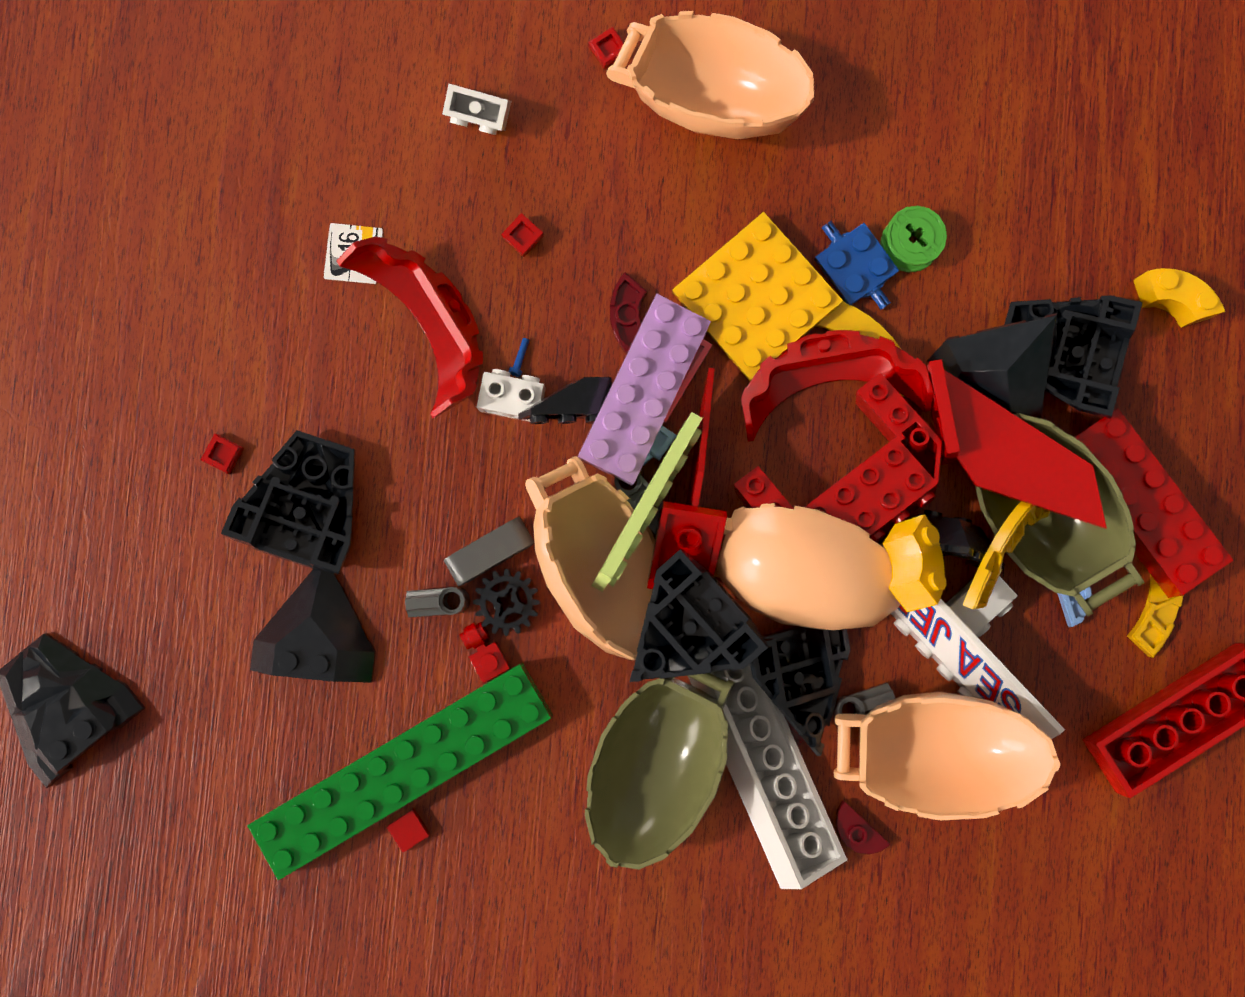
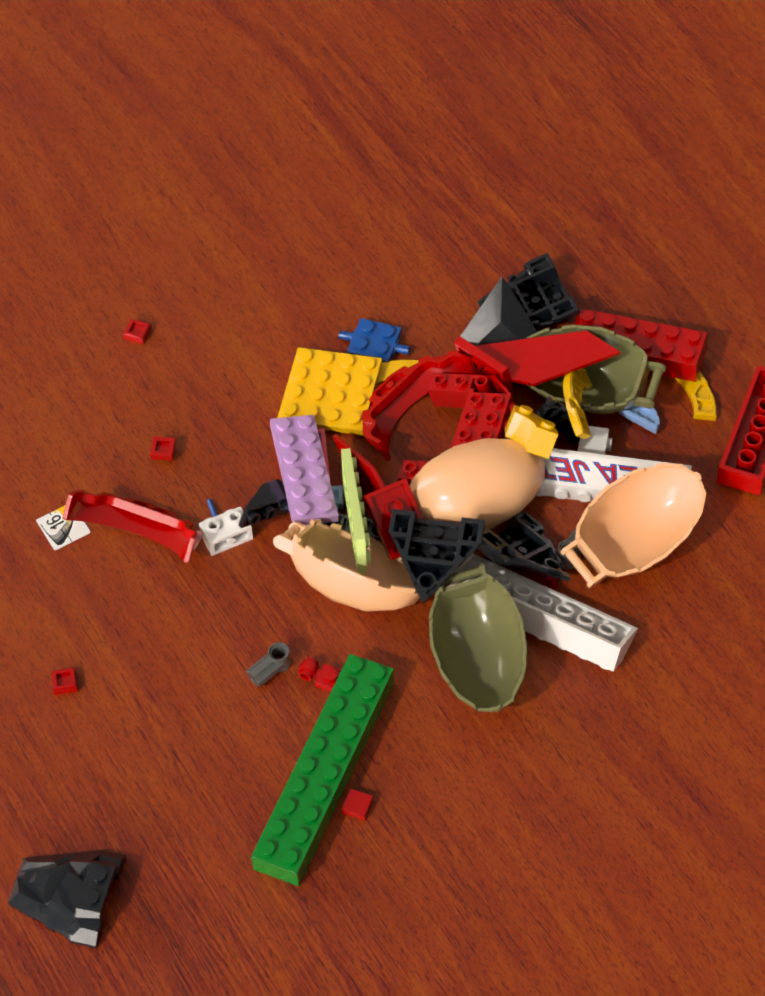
camera: 35 degrees left, 30 degrees down
(300, 505) = (142, 668): black wedge -> none
(315, 636) = (203, 735): black wedge -> none
(476, 107) = (83, 401): white brick -> none
(489, 551) = (280, 617): dark grey beam -> none
(499, 619) = (303, 642): black gear -> none
(625, 310) = (258, 449): dark red tile -> none
(715, 75) = (214, 296): light nougat windscreen -> none
(857, 832) = (633, 614): dark red plate -> none
(916, 222) = (396, 307): bright green piece -> none
(1179, 294) = (567, 242): yellow brick -> none

